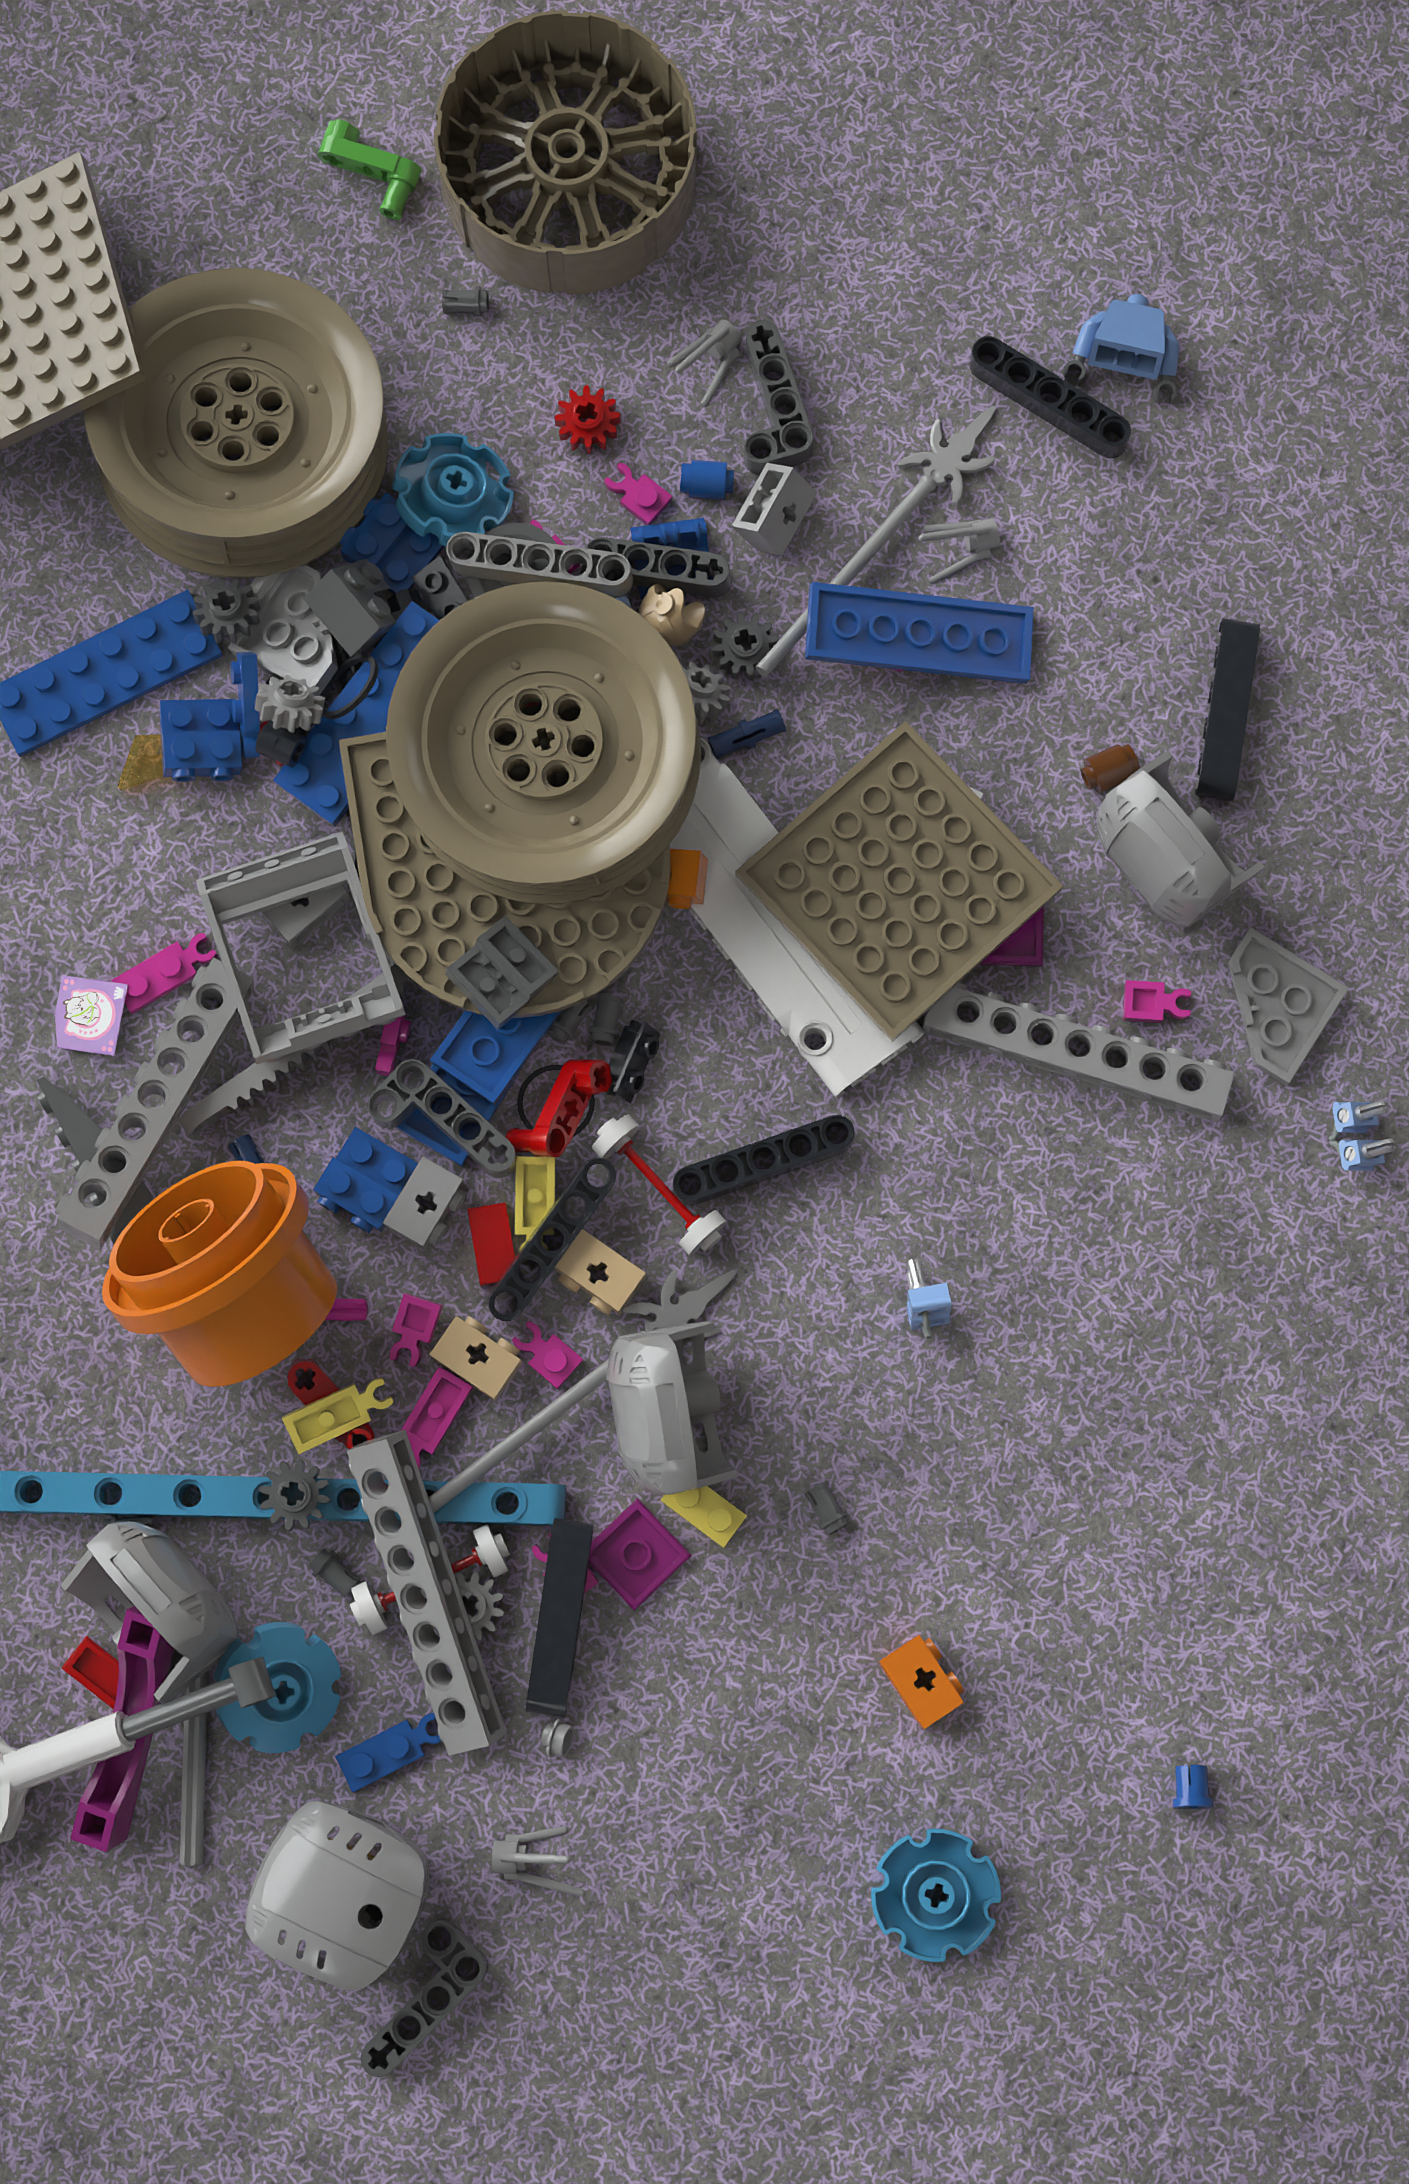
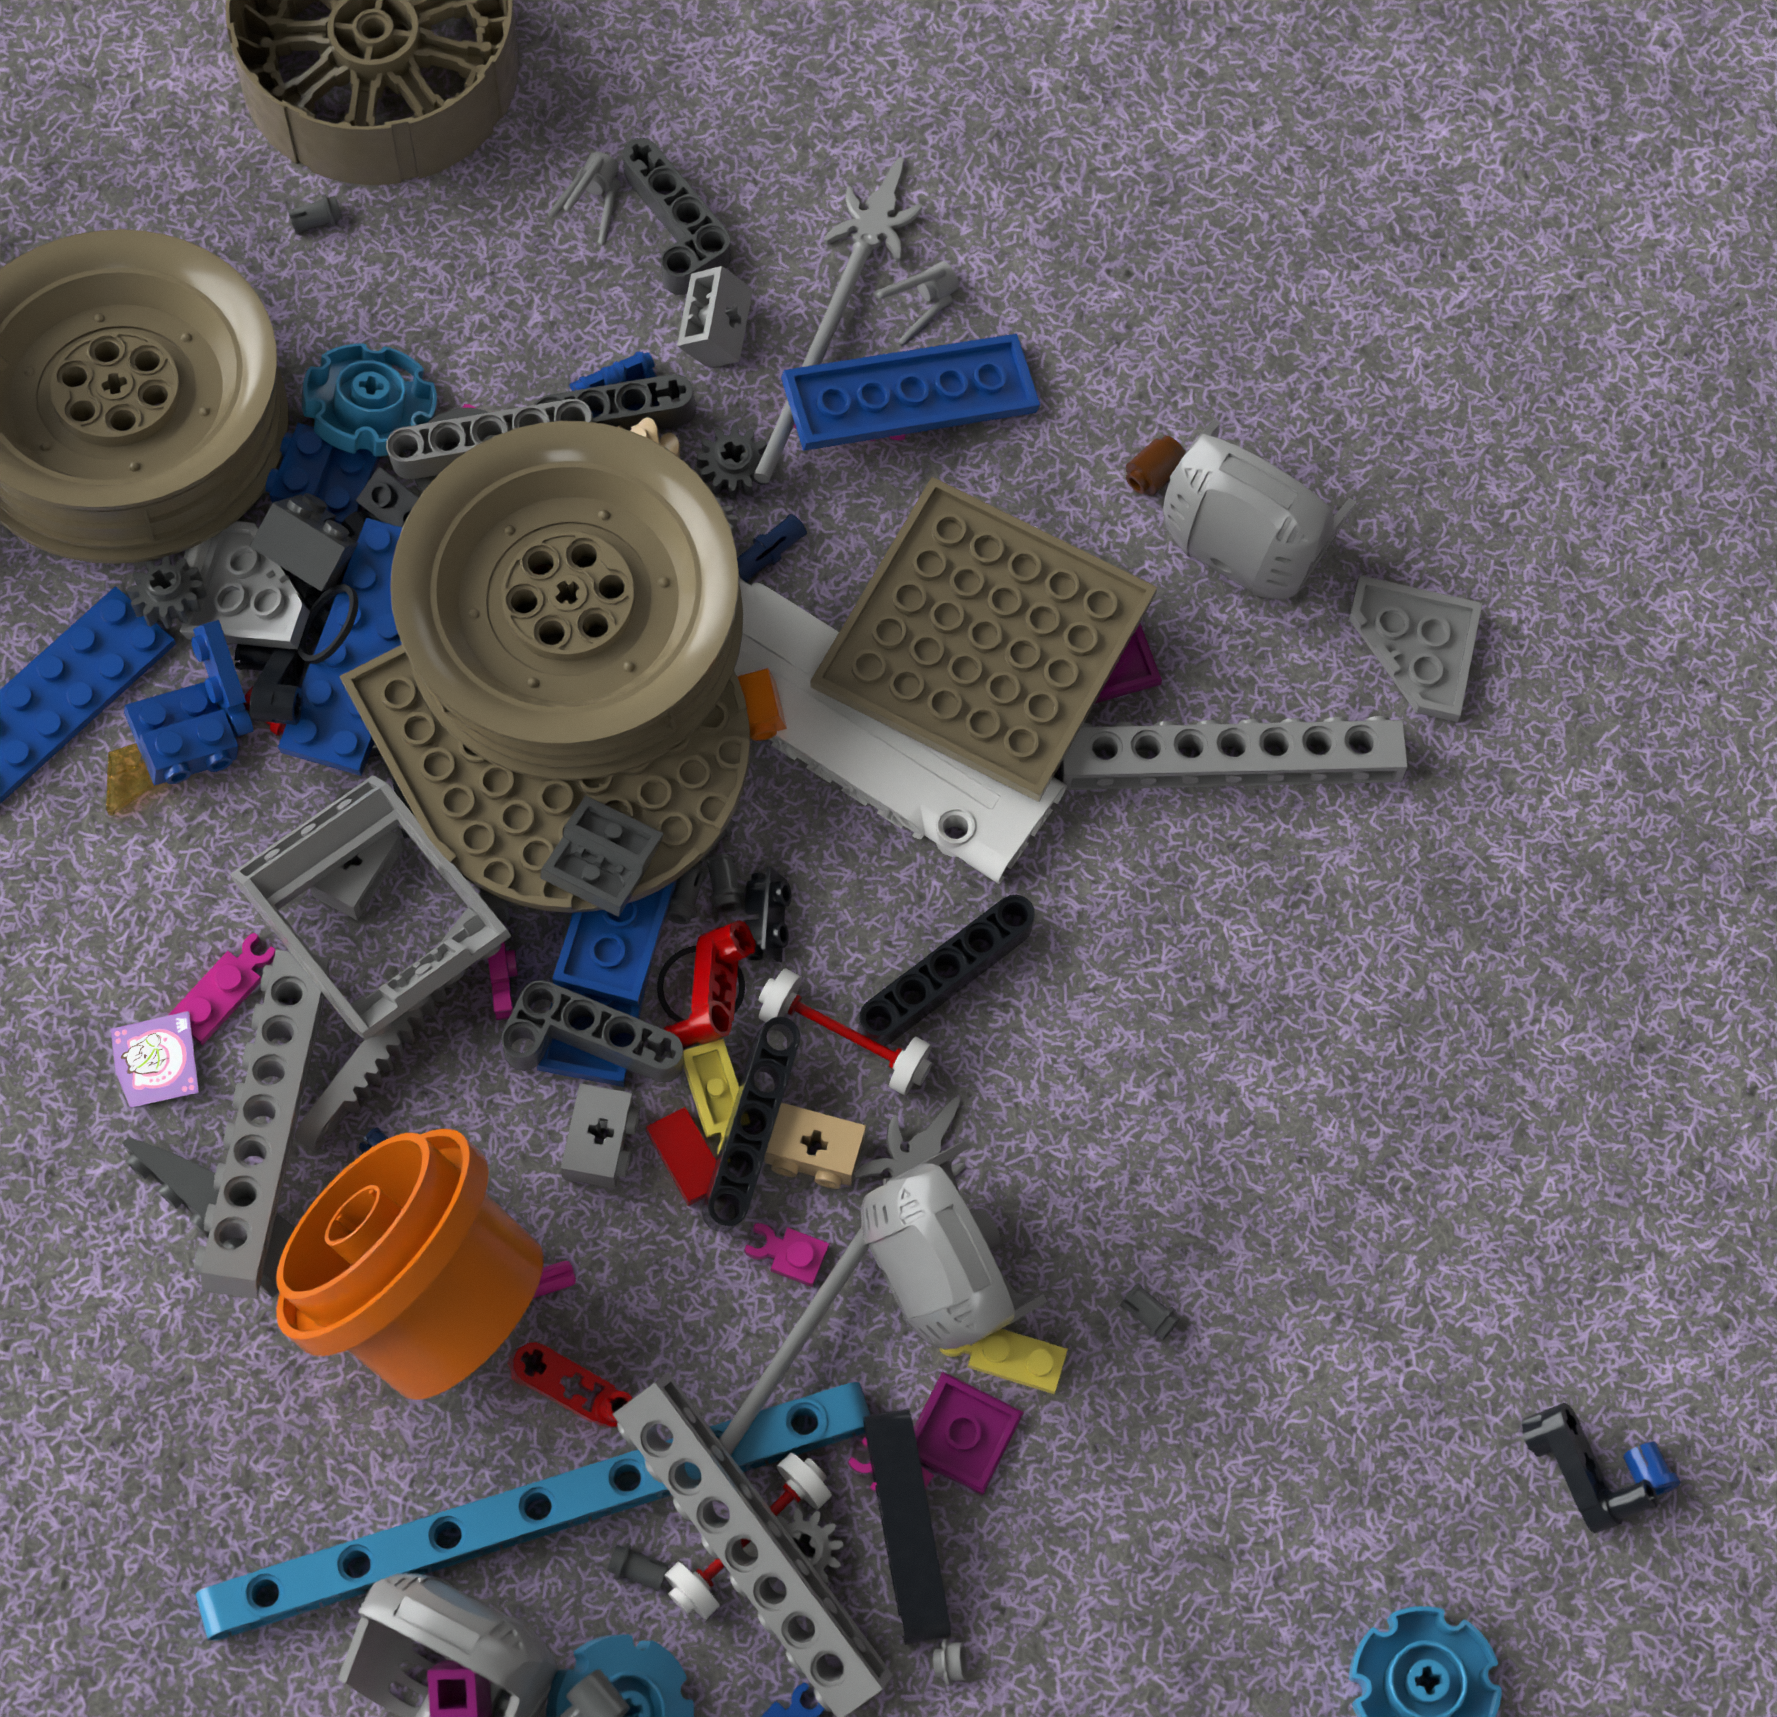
camera: 25 degrees left, 10 degrees down
(283, 1506) = (581, 1476): dark grey gear -> none
(289, 703) = (273, 655): light grey gear -> none
(333, 1415) = (579, 1391): light yellow plate -> none
(342, 150) = (135, 106): bright green beam -> none
(364, 1180) = (525, 1134): blue plate -> none
(416, 1322) = (632, 1264): dark pink plate -> none
(435, 1412) = (690, 1349): dark pink plate -> none
(454, 1349) = (731, 1296): tan brick -> none
(592, 430) = (501, 292): red gear -> none
(641, 497) = (569, 352): dark pink plate -> none
(706, 479) = (632, 312): blue brick -> none
(923, 1704) = (1335, 1479): orange brick -> none
(926, 1304) = (1176, 1057): light blue piece -> none
(1042, 381) = (942, 116): black beam -> none
(1129, 341) = (1016, 52): medium blue torso -> none
(1130, 1734) = (1561, 1433): none -> black beam
(1147, 1002) = (1286, 684): dark pink plate -> none
(1228, 709) = (1253, 371): black beam -> none
(1357, 1118) = (1541, 729): piece -> none

